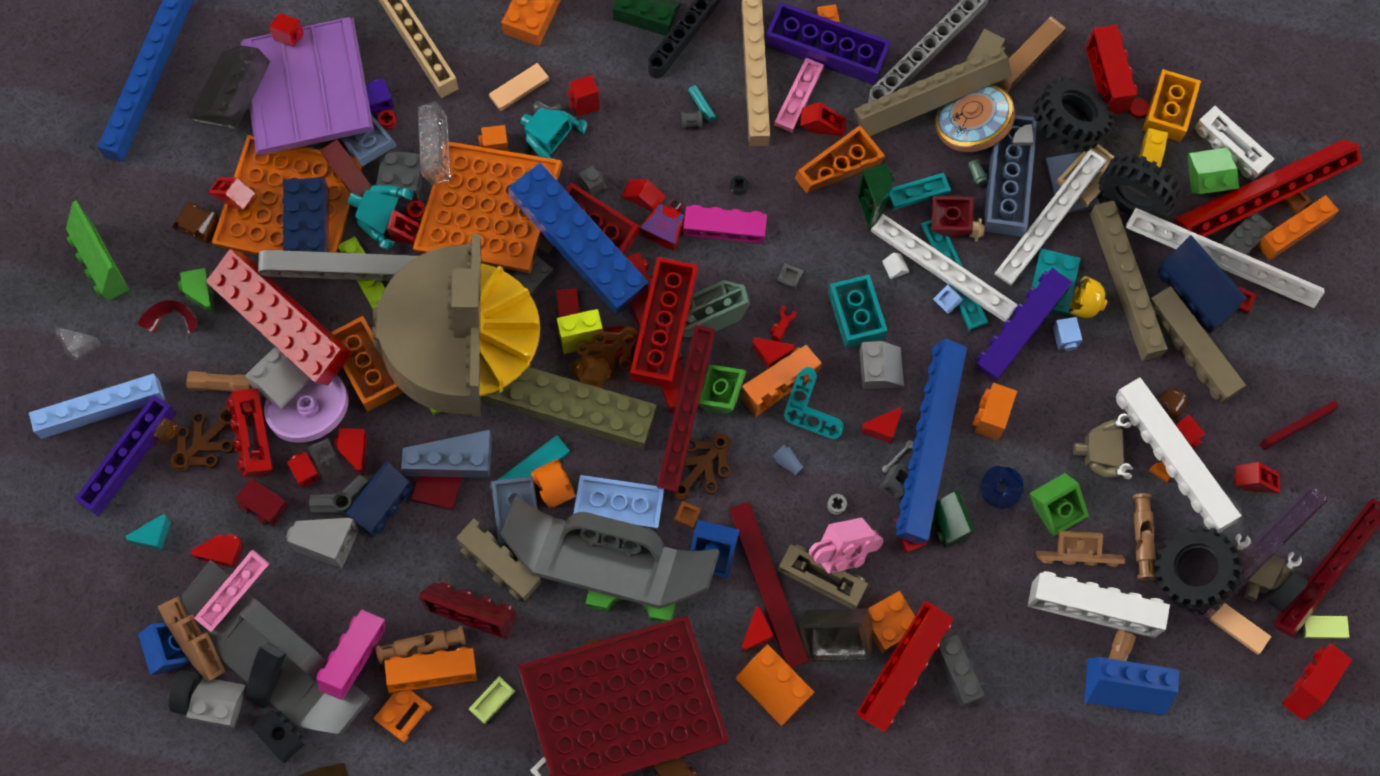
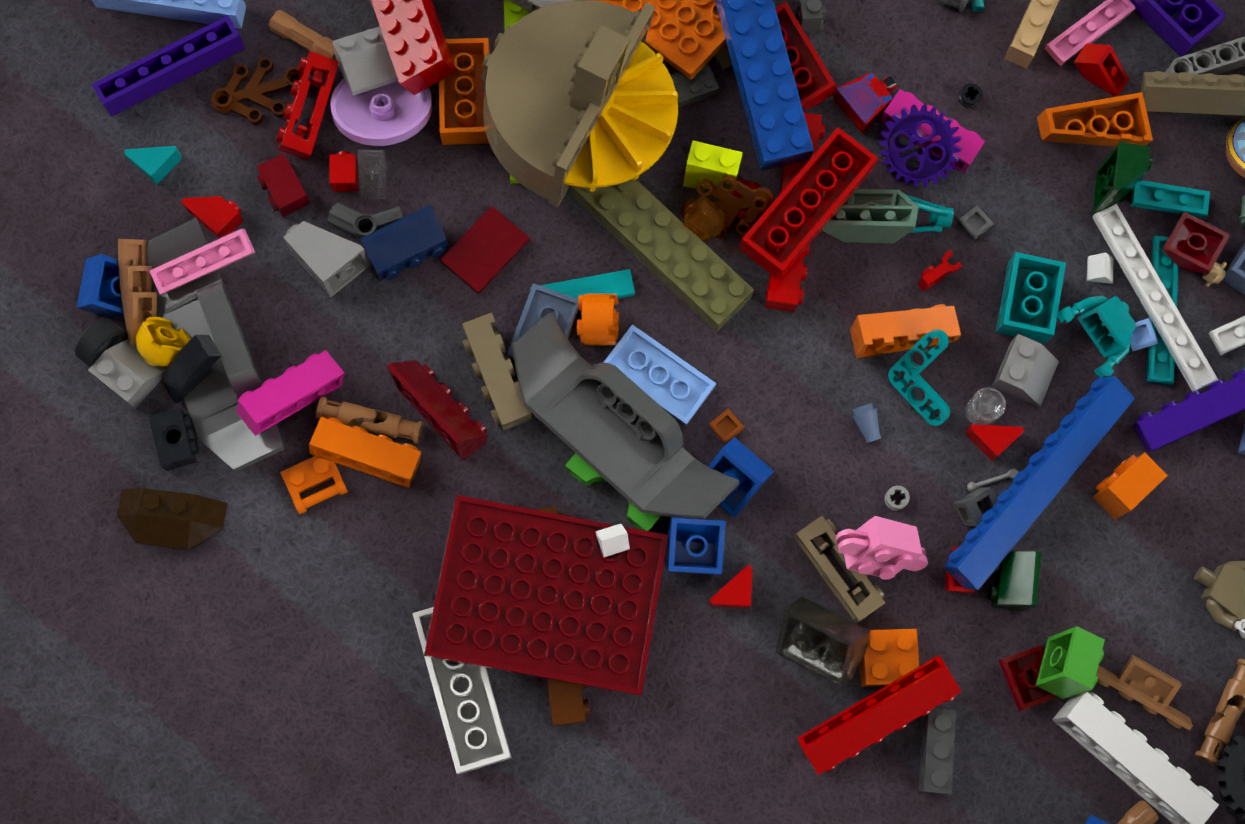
camera: 25 degrees right, 5 degrees up
(166, 430) = (224, 60): clear orange plate -> none
(231, 668) = (159, 341): none -> yellow cylinder
(352, 447) = (408, 173): red slope -> none
(450, 457) = (505, 236): sand blue wedge -> none
(492, 700) = (414, 517): yellowish green tile -> none
(567, 302) = (716, 130): red tile -> none
(643, 194) = (860, 54): red slope -> none
(650, 639) = (613, 540): none -> white slope
(686, 408) = (784, 309): dark red plate -> none
(705, 463) = (773, 379): reddish brown plant -> none
(707, 229) = (930, 165): none -> dark purple gear
(711, 612) = (695, 545): none -> blue slope
(721, 389) = (833, 307): bright green slope -> none
(761, 284) = (939, 215): none -> teal plant
(768, 585) = (774, 548): dark red tile -> none
(771, 351) = (911, 294): red slope -> none
(774, 685) = (724, 659): orange slope -> none
(865, 406) = (985, 407): none -> clear wheel
(920, 304) = (1107, 325): none -> teal torso
(996, 584) = (1021, 675): none -> dark red slope
(1002, 475) = (1083, 584): clear blue plate -> none
(1019, 558) = (1070, 662): none -> bright green brick
(1059, 504) = (1149, 625): bright green slope -> none

